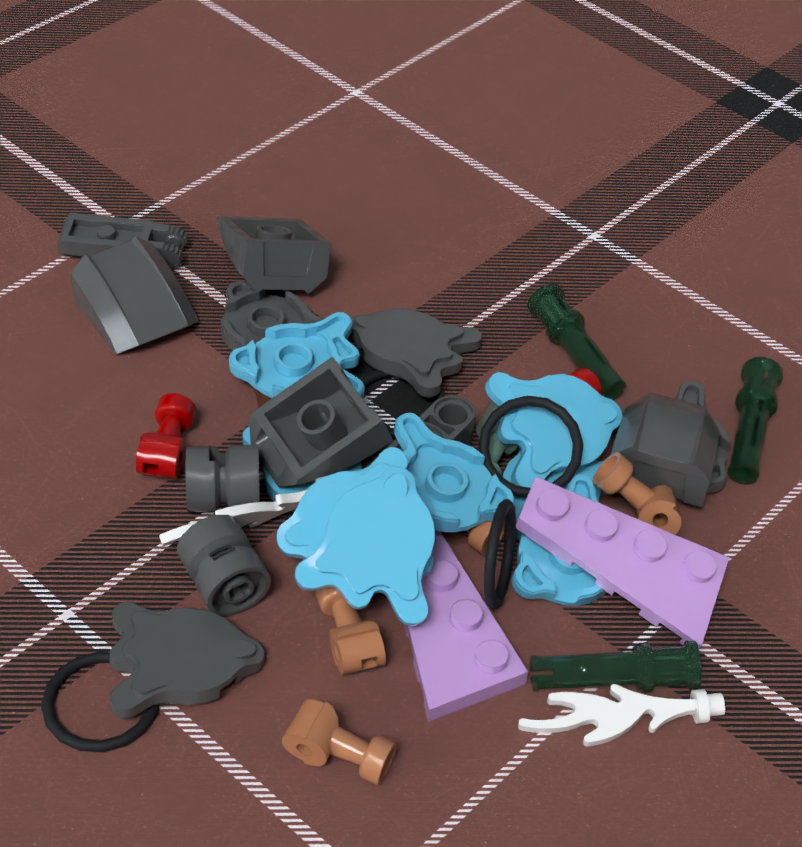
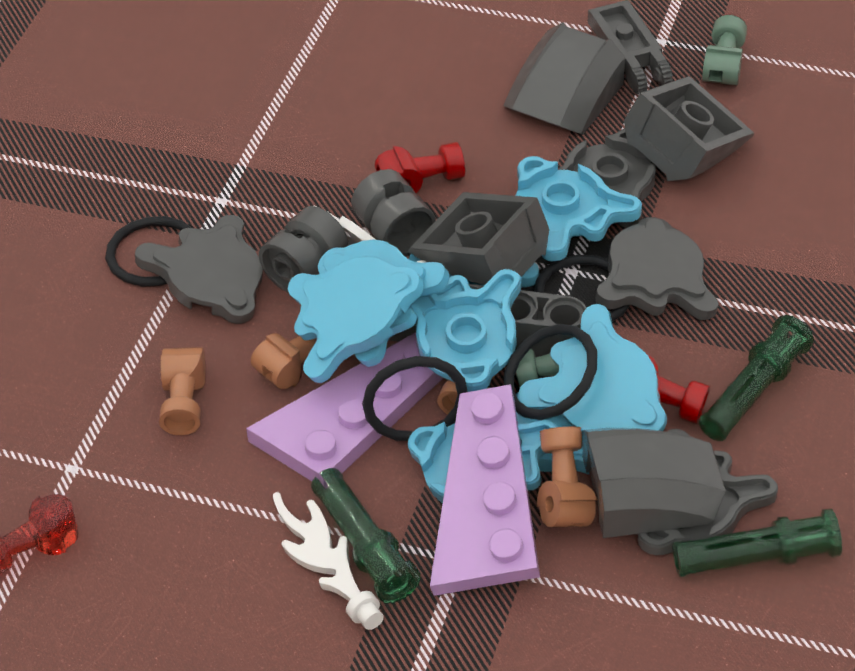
camera: 70 degrees right, 0 degrees up
(199, 199) = (724, 58): none -> sand green leg

